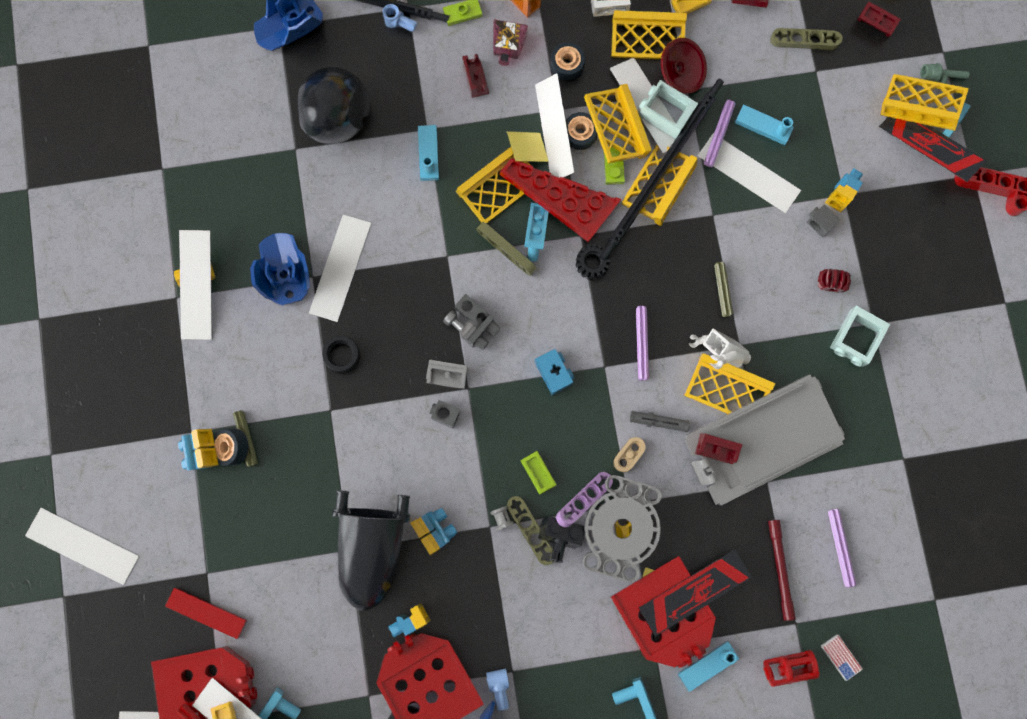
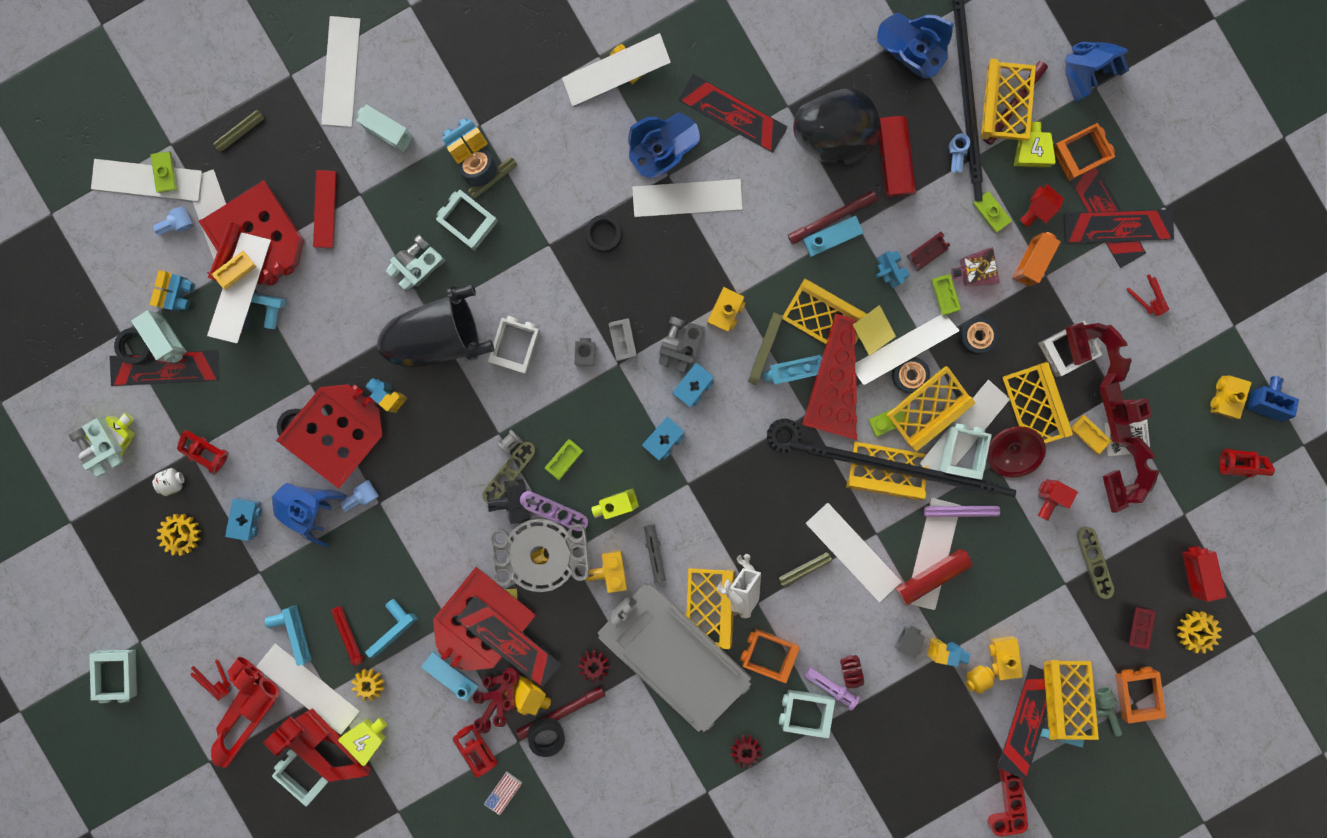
camera: 75 degrees right, 10 degrees up
(93, 670) = (238, 131): none -> olive axle
(153, 521) = (384, 128): none -> light aqua window
(280, 199) = (732, 113): none -> black sticker
(292, 468) = (480, 233): none -> light aqua window
(299, 547) = (415, 269): none -> light aqua hips
(382, 73) = (896, 156): none -> red brick
(414, 176) = (860, 202): none -> dark red piece
(426, 491) = (511, 321): none -> white window
(430, 522) = (470, 391): dark azure hips -> none
(457, 270) = (726, 309): none -> yellow brick
(478, 113) = (890, 270): none -> dark azure hips
(515, 314) = (695, 374): none -> dark azure brick
(520, 75) = (946, 294): none -> lime plate
(600, 430) = (622, 503): none -> neon yellow torso
(629, 455) = (612, 537): tan plate -> none
(642, 343) = (723, 511): lavender axle -> none
(662, 467) = (611, 571): none -> yellow brick
(718, 448) = (647, 617): dark red hinge -> none
(722, 241) = (853, 552): none -> white sticker
(734, 47) = (1055, 495): none -> red brick
(741, 522) = (588, 662): none -> dark red gear
(749, 625) = (508, 680): none -> dark red plant
(754, 595) = (529, 697): none -> yellow brick
(765, 125) = (988, 551): medium azure piece -> none
(771, 177) = (934, 577): none -> red brick
(803, 335) = (788, 662): none -> orange window
(813, 591) = (548, 749): none -> black tyre
(842, 548) = (602, 761): lavender axle -> none
(849, 301) = (839, 692): none -> lavender pin
(866, 143) = (1005, 658): none -> yellow brick
(873, 399) = (744, 757): none -> dark red gear
(878, 172) = (979, 679): none -> yellow head
(932, 56) = (1144, 714): none -> orange window

